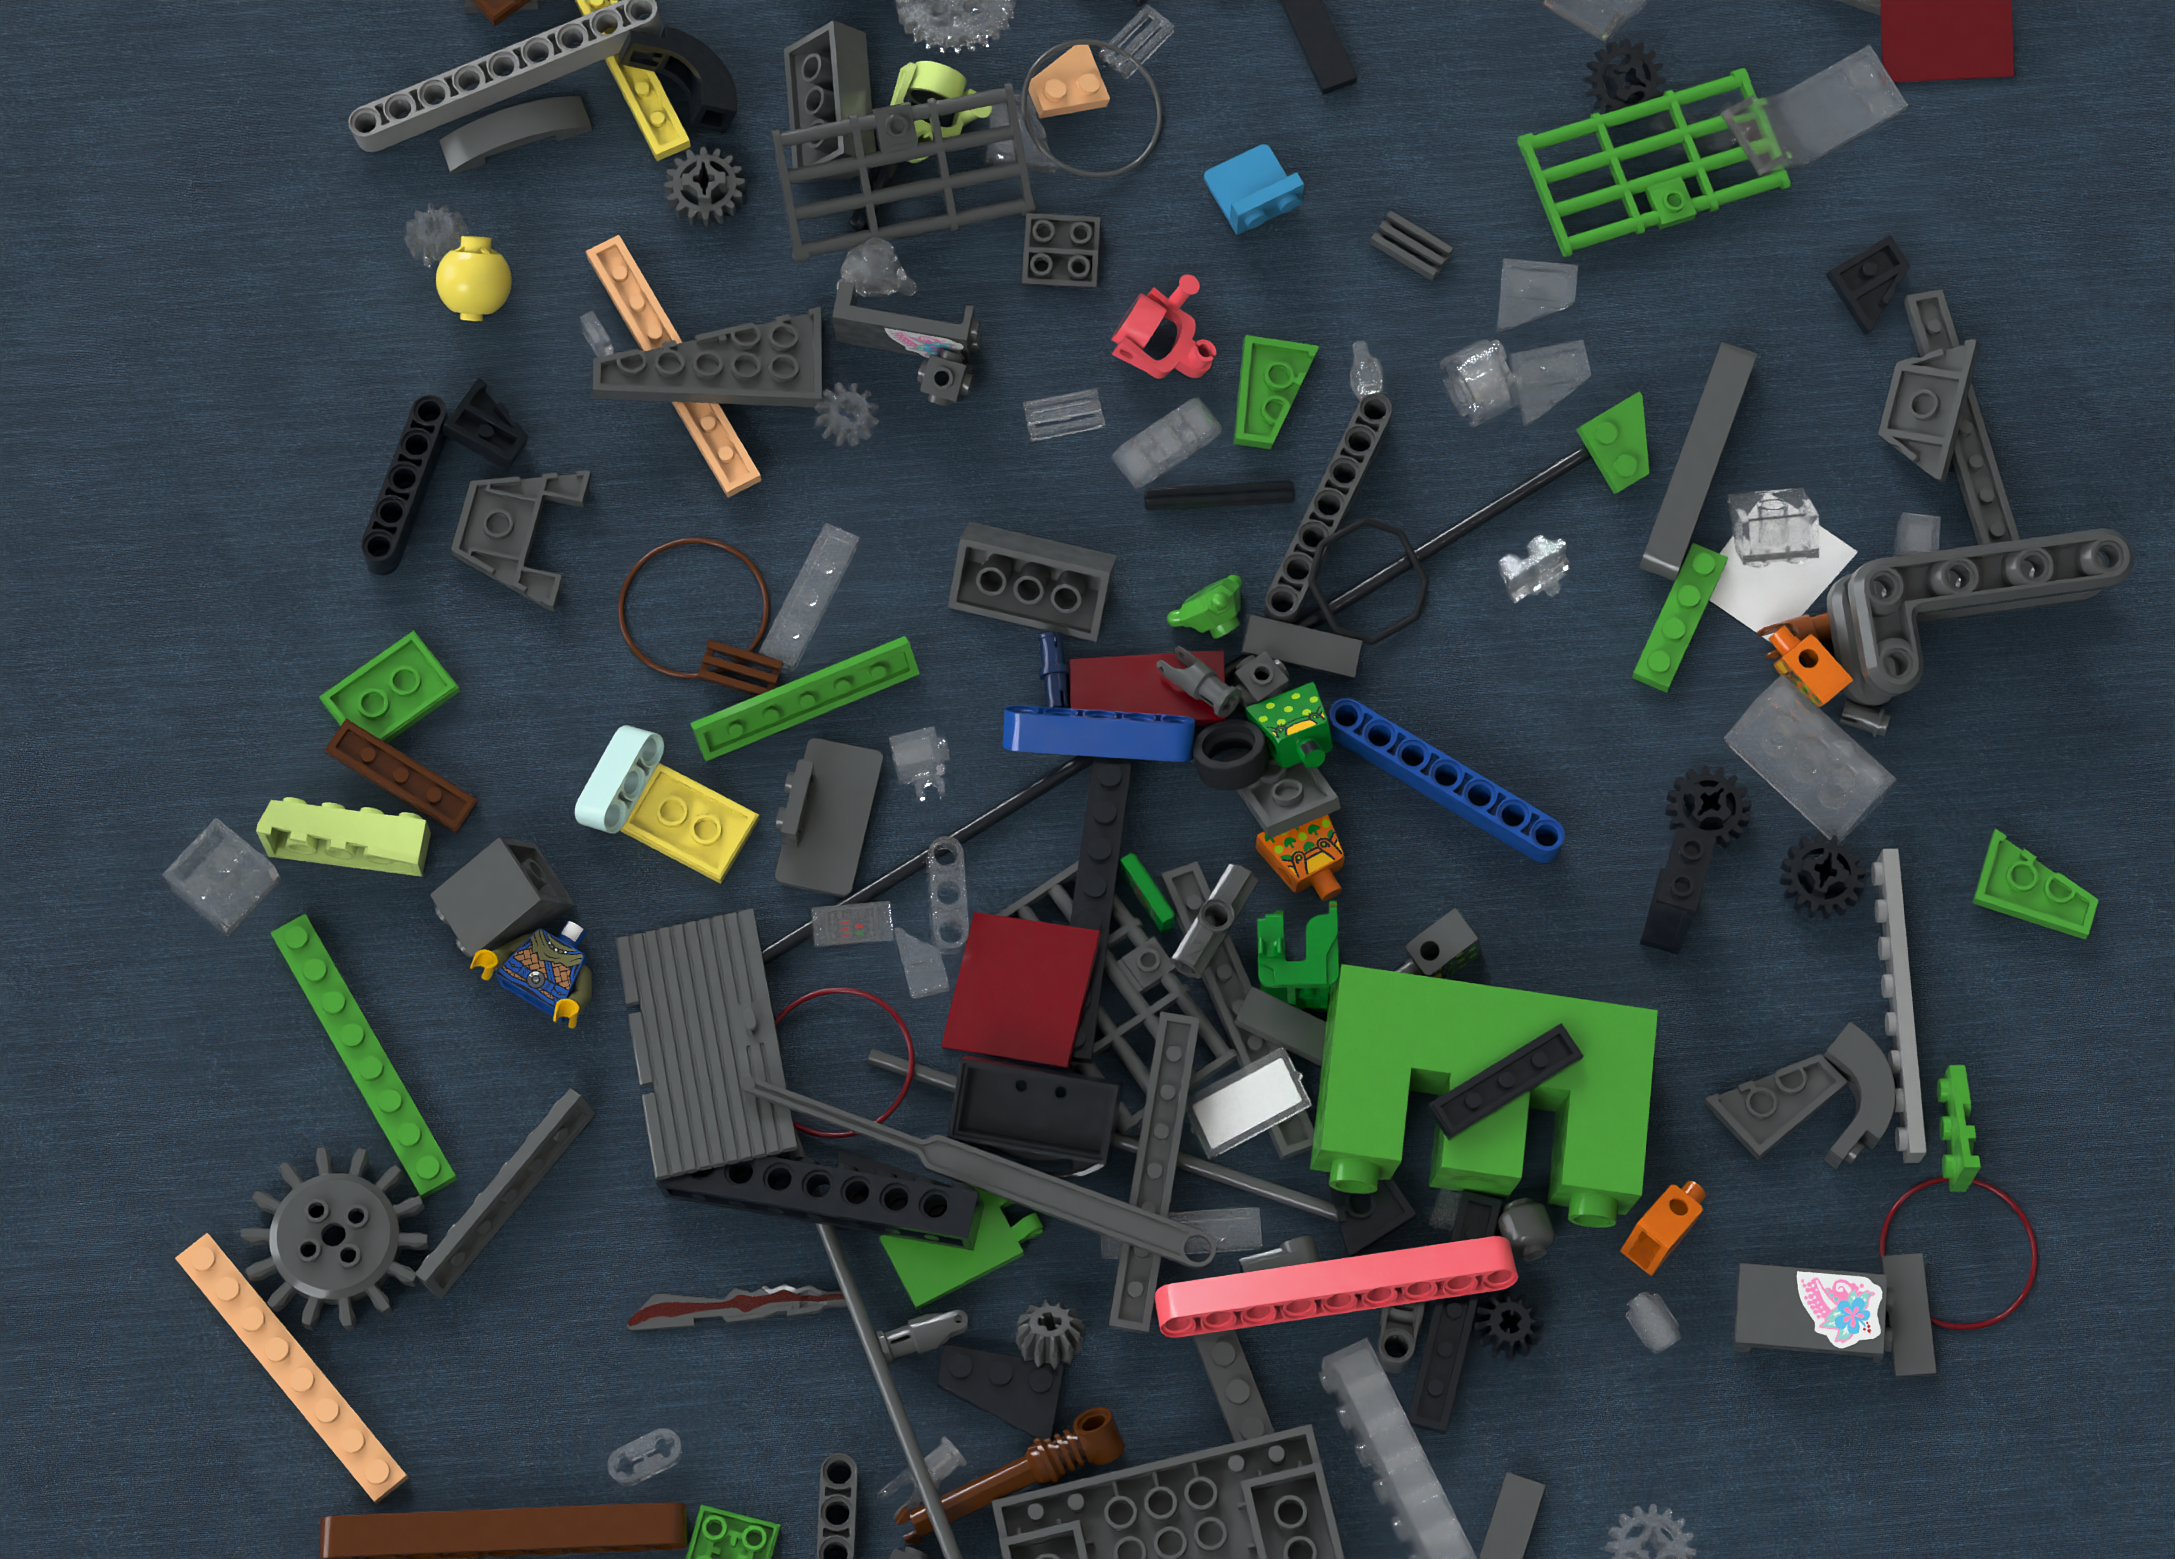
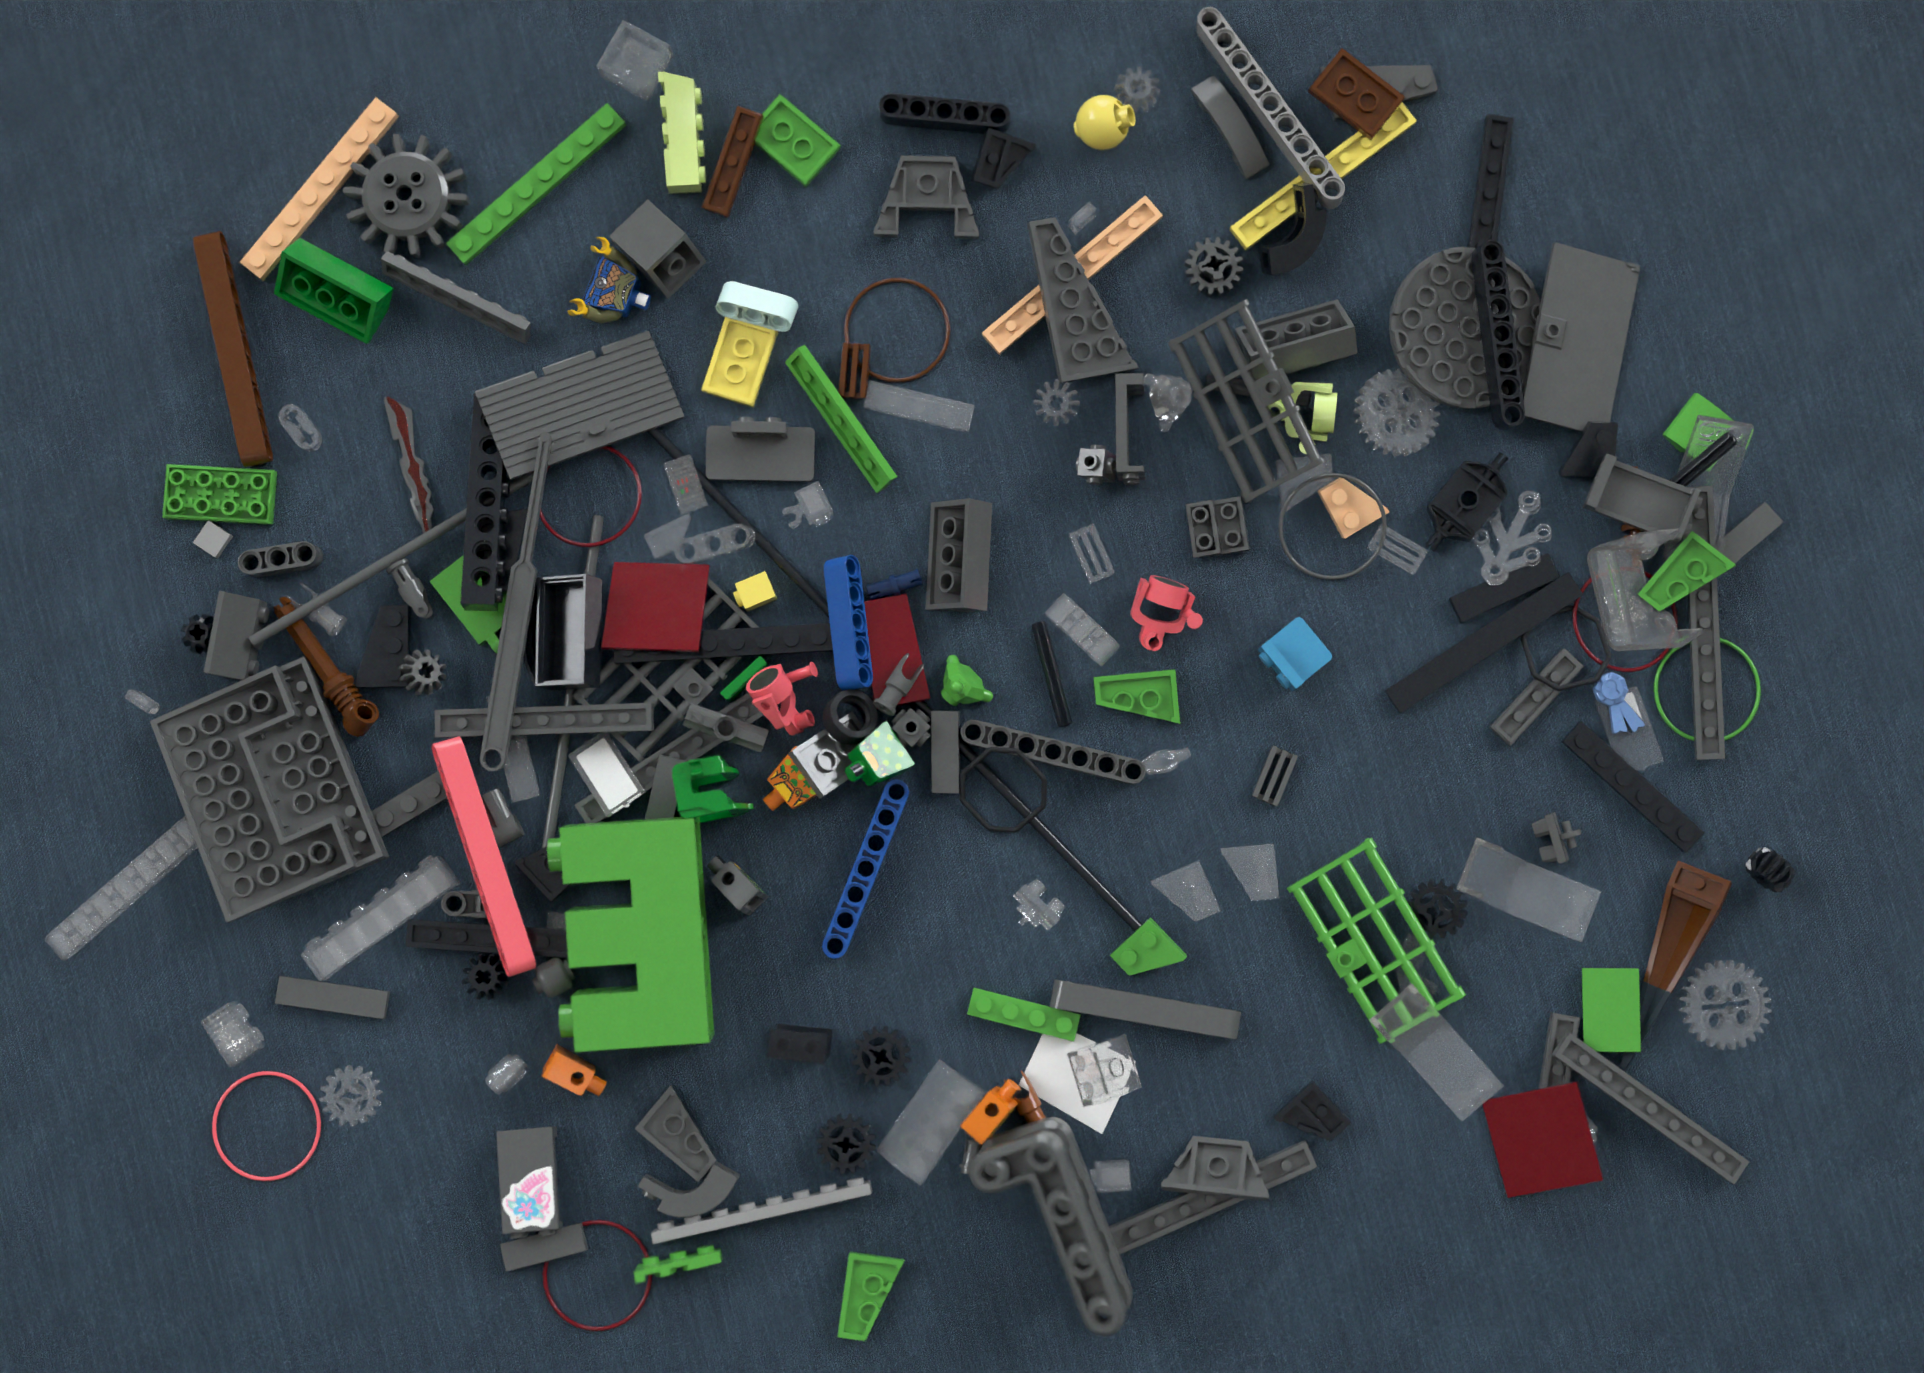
camera: 80 degrees right, 15 degrees up
(451, 1369) = (332, 290): none -> green slope
(1026, 856) = (754, 592): none -> light yellow brick
(1173, 846) = (773, 687): none -> coral piece
(1481, 381) = (1169, 843): clear brick -> none
(1505, 1082) = (632, 945): black tile -> none

